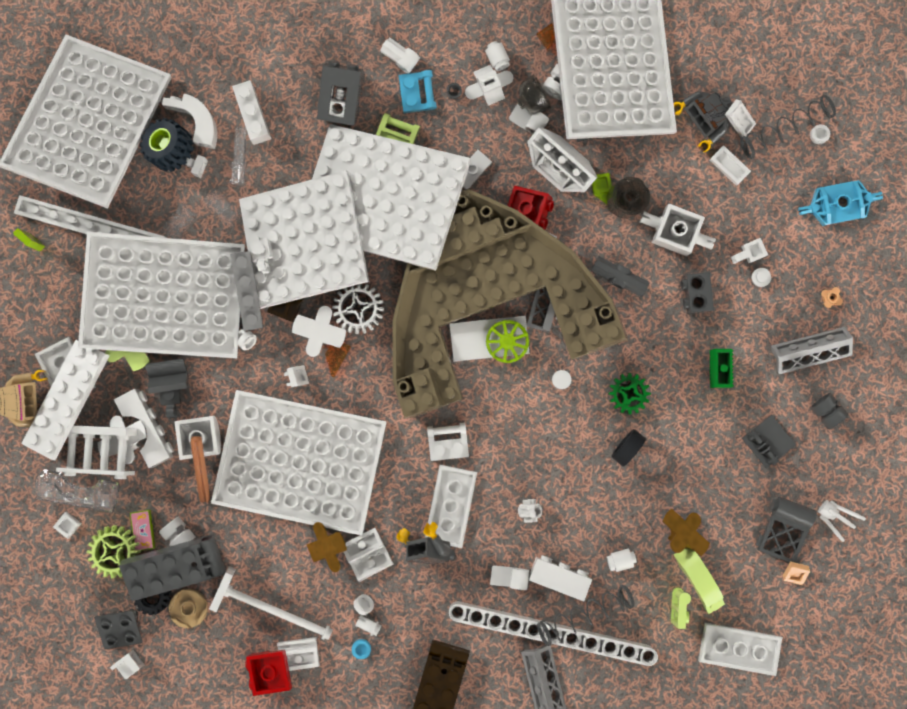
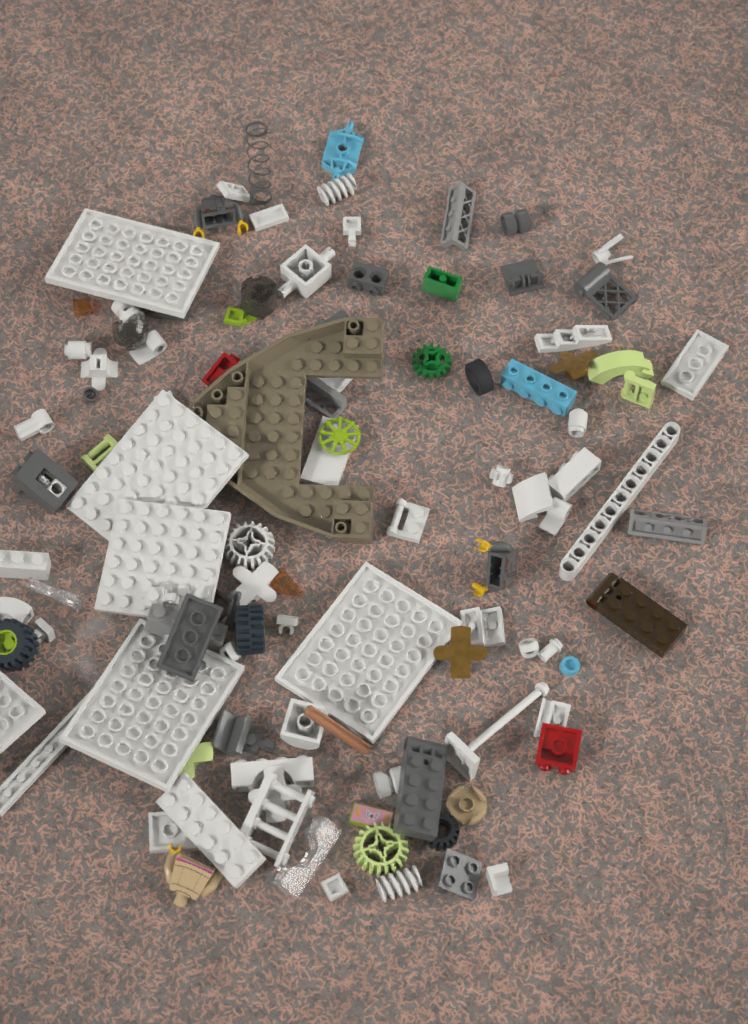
camera: 70 degrees left, 25 degrees down
(28, 239) = (36, 804): lime tile -> none
(86, 581) = (398, 883): none -> white piece
(230, 300) = (189, 637): none -> dark grey tile
(266, 349) = (250, 629): none -> black wheel
(285, 323) = (235, 597): none -> dark grey axle
(411, 94) = (72, 431): medium azure plate -> none
(452, 503) = (459, 537): white tile -> none
(518, 550) = (532, 497): none -> white slope
(549, 642) = (605, 473): dark grey piece -> none
(560, 162) = (201, 336): white wedge -> none
(561, 379) = (394, 410): white tile -> none
(644, 508) = (538, 387): none -> medium azure brick
(717, 519) = (571, 339): none -> white slope
(761, 277) = (377, 230): white plate -> none
(790, 218) = (337, 188): none -> white piece
(796, 573) = (645, 297): light nougat plate -> none
(820, 134) = (276, 145): white tile -> none
(828, 302) = (419, 191): light nougat plate -> none

